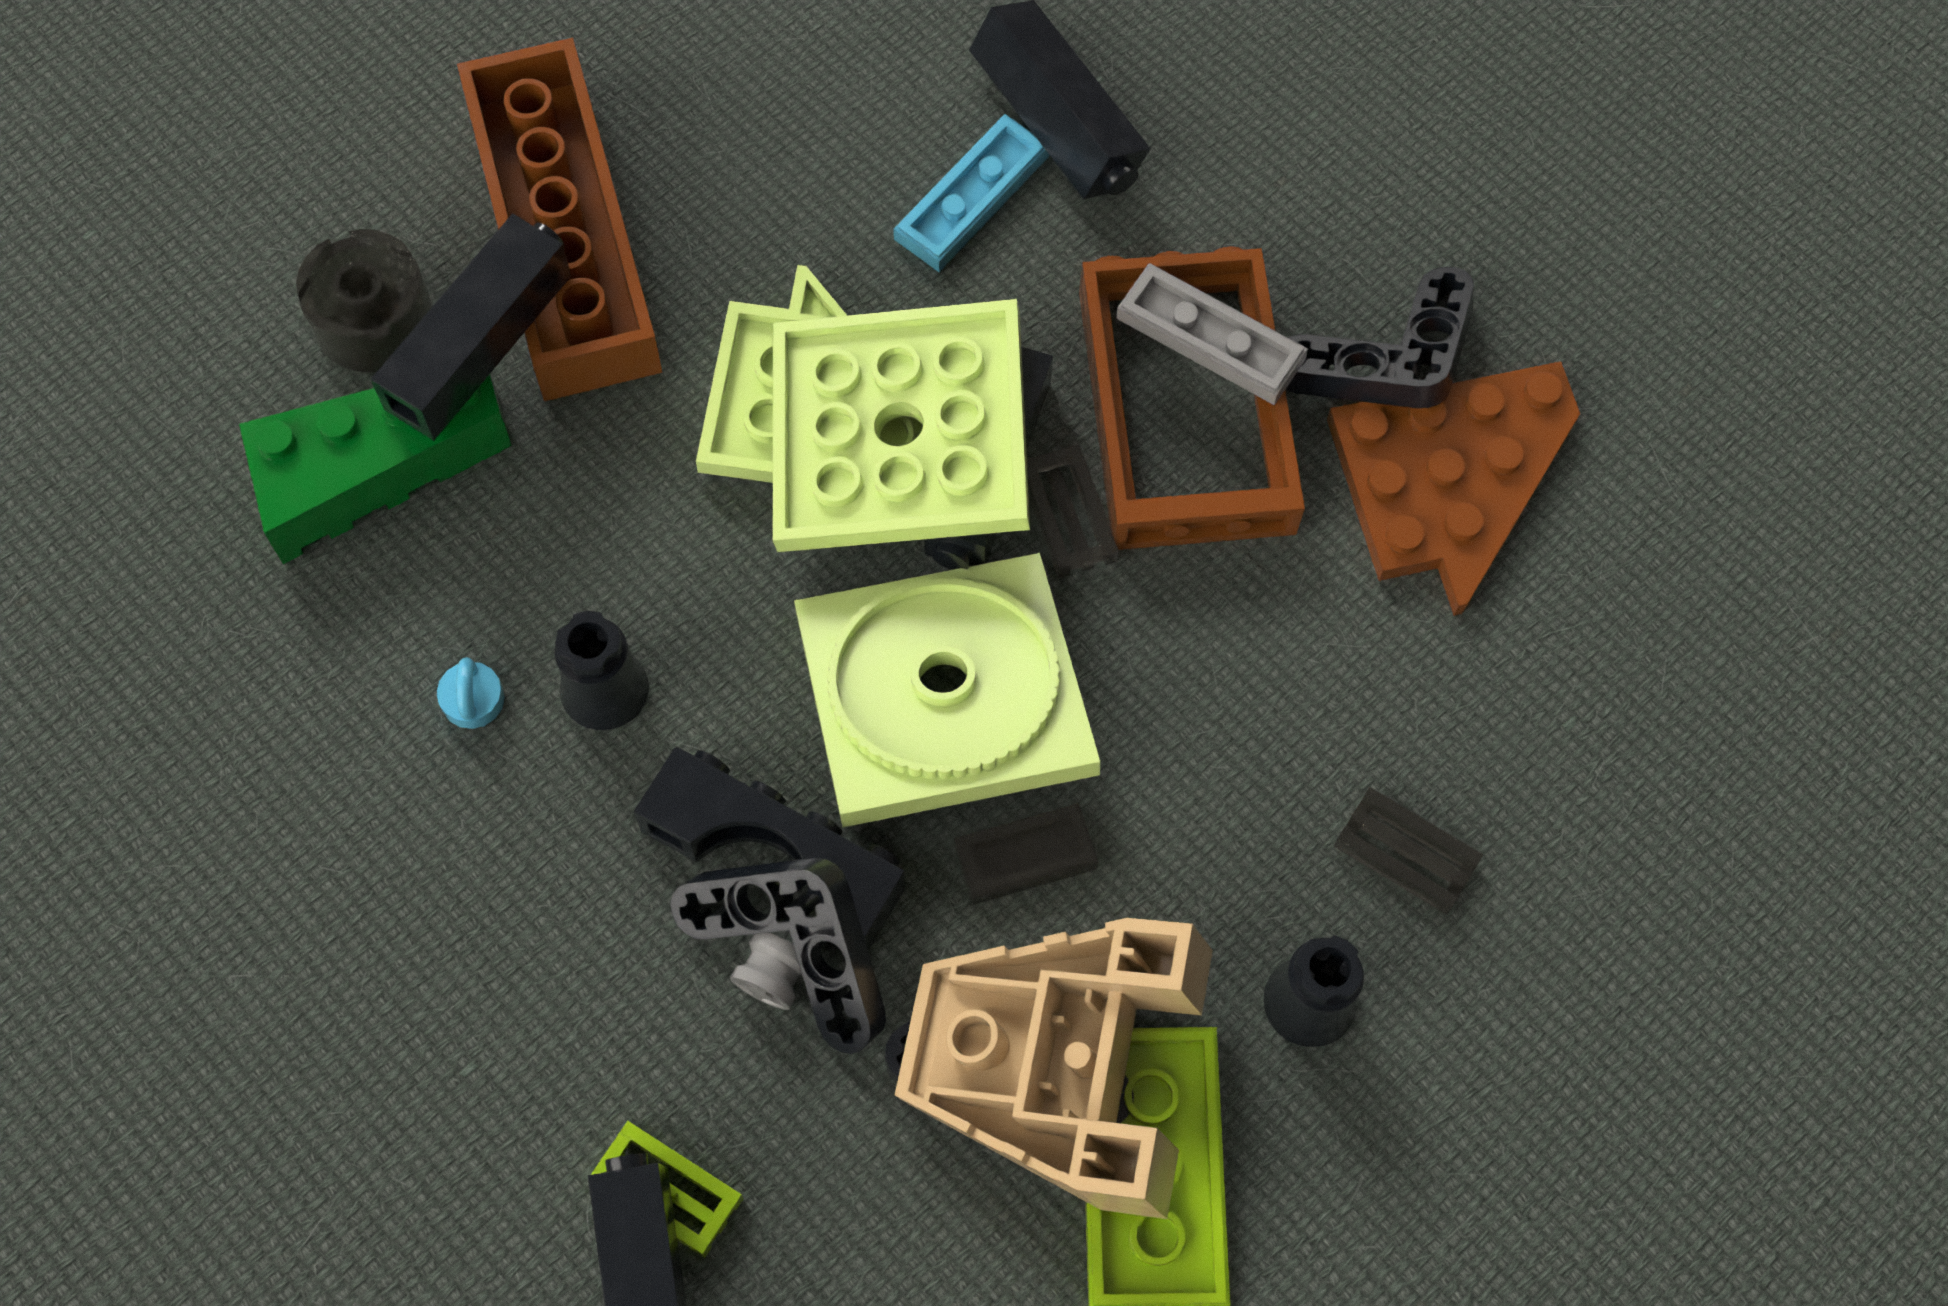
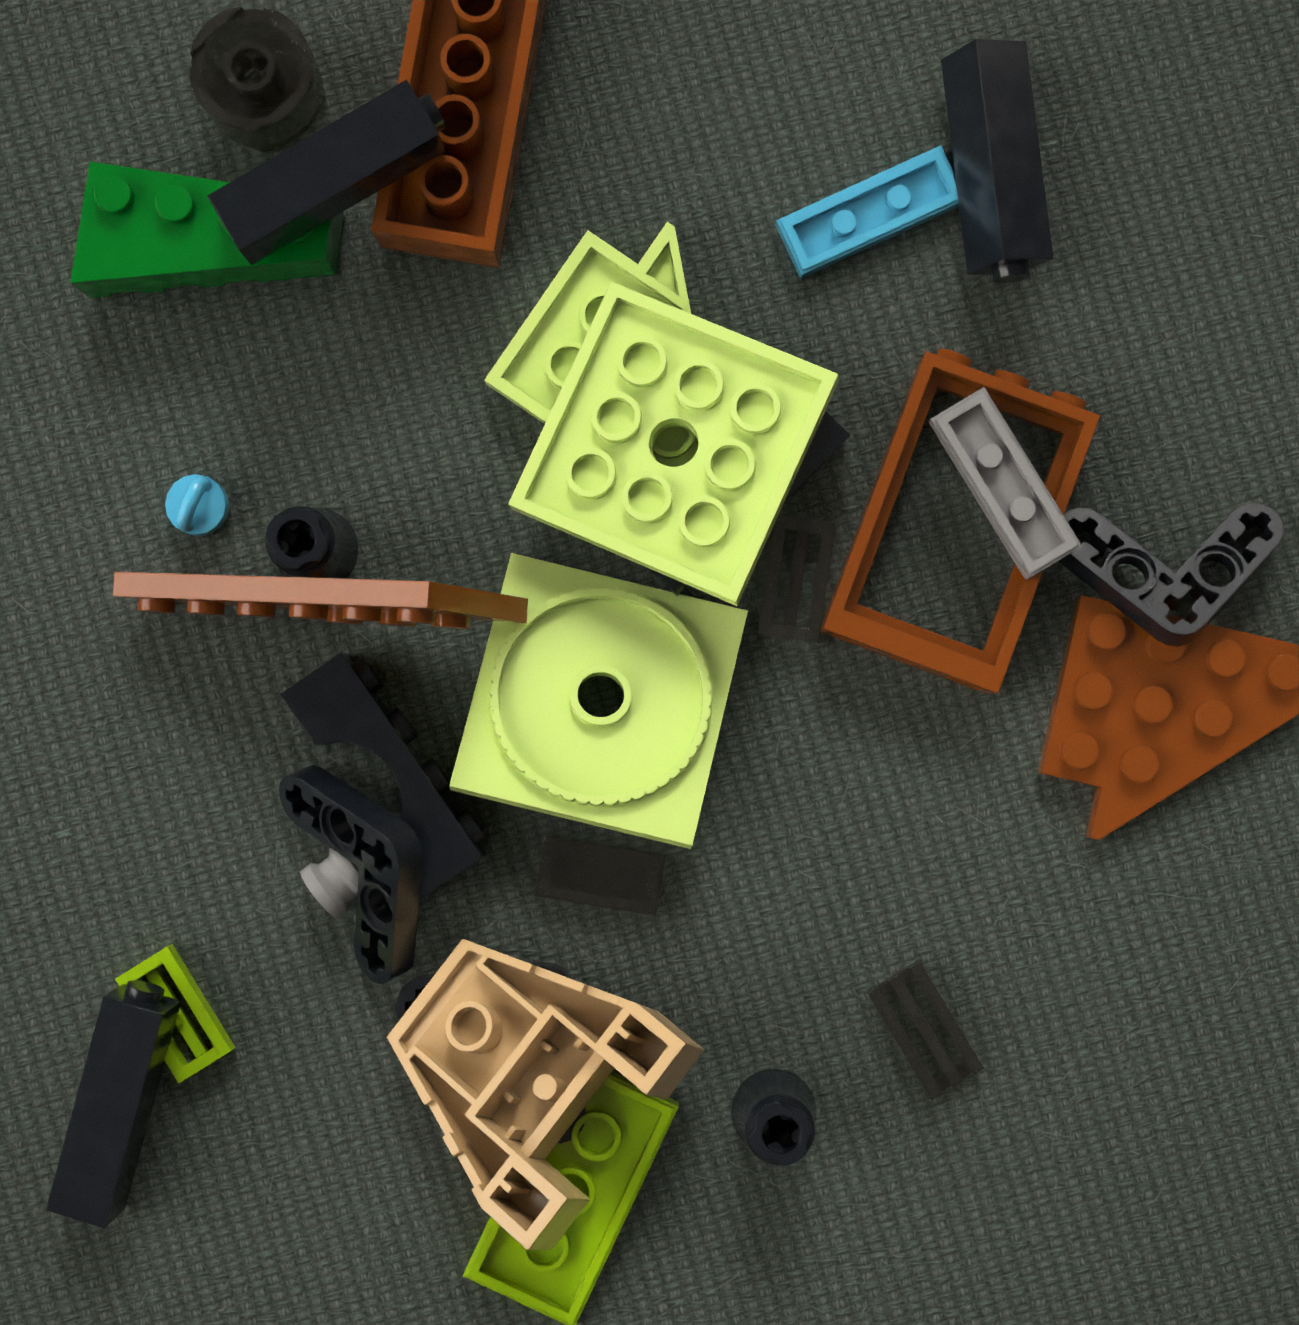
camera: 30 degrees right, 20 degrees up
(653, 683) = (321, 599): none -> wing

